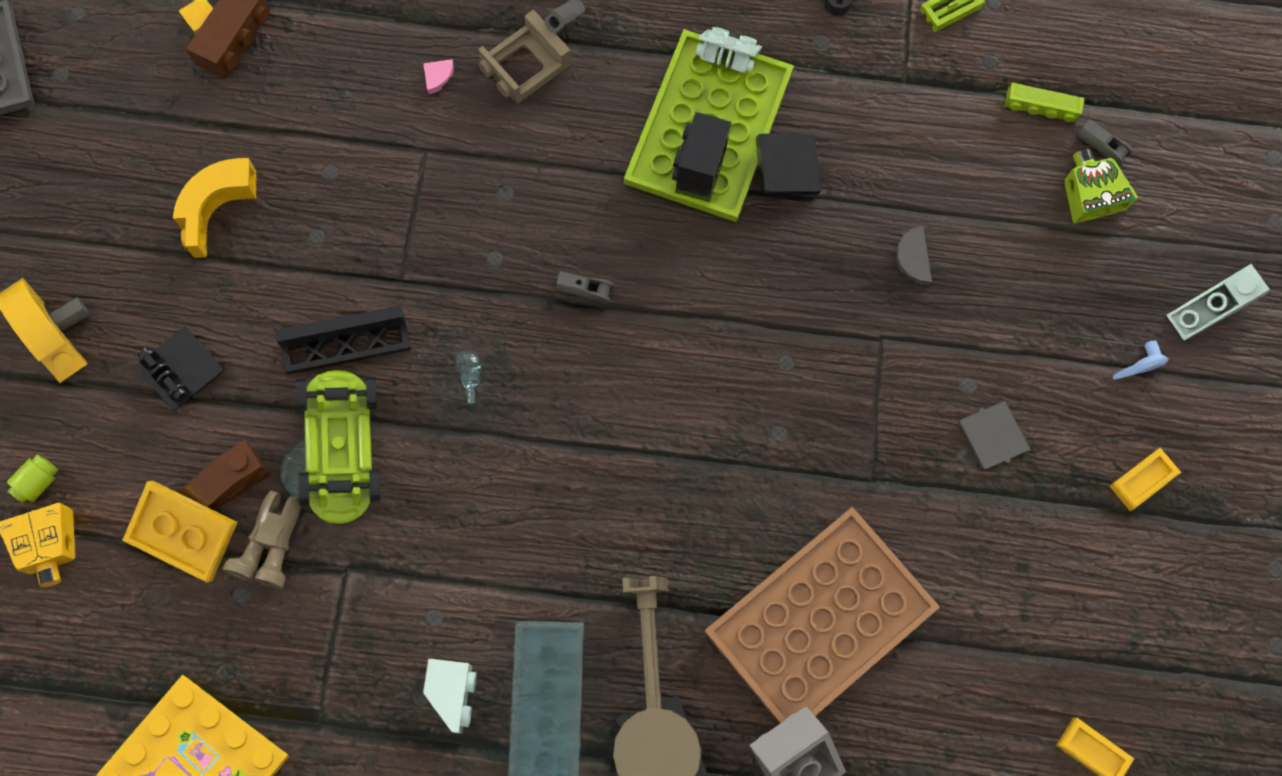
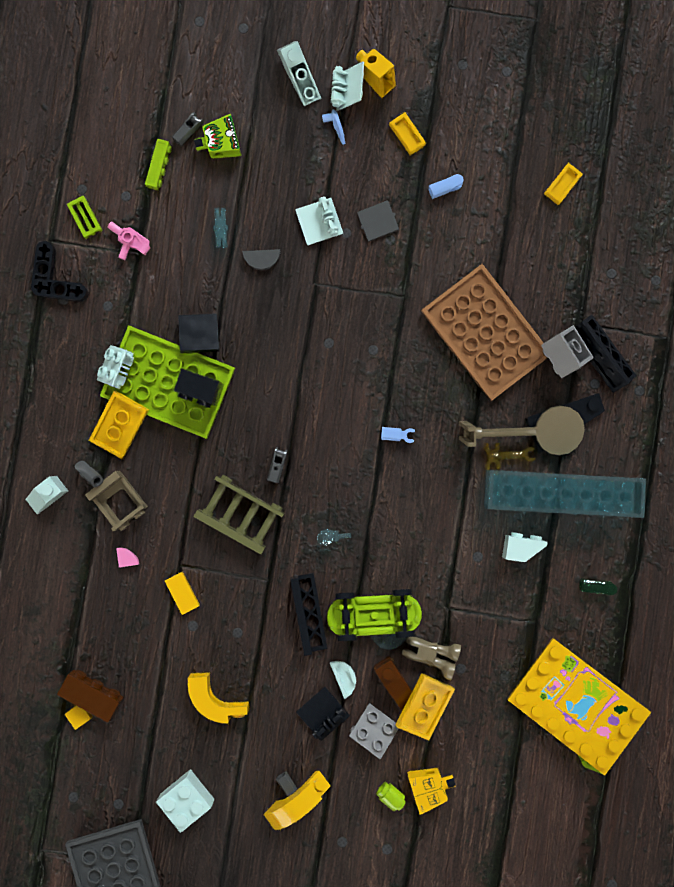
camera: 85 degrees left, 15 degrees up
(56, 163) = (185, 801): none -> light aqua brick
(144, 448) = (374, 731): none -> light grey hinge
(238, 401) = (345, 677): none -> light aqua tile
(382, 154) = (182, 593): none -> yellow tile
(488, 207) = (223, 524): none -> olive fence
(608, 640) = (494, 455): none -> clear yellow bar
(640, 472) = (396, 434): none -> light blue bar
(641, 56) = (118, 424): none -> yellow tile
(925, 65) = (129, 239): none -> bright pink piece
(956, 193) = (220, 228): none -> clear light blue pin
(983, 341) = (319, 221): none -> light aqua hinge
(1065, 544) = (445, 186): none -> light blue bar
(1208, 372) = (347, 86): none -> light aqua hinge
(1248, 412) = (377, 71): none -> yellow torso

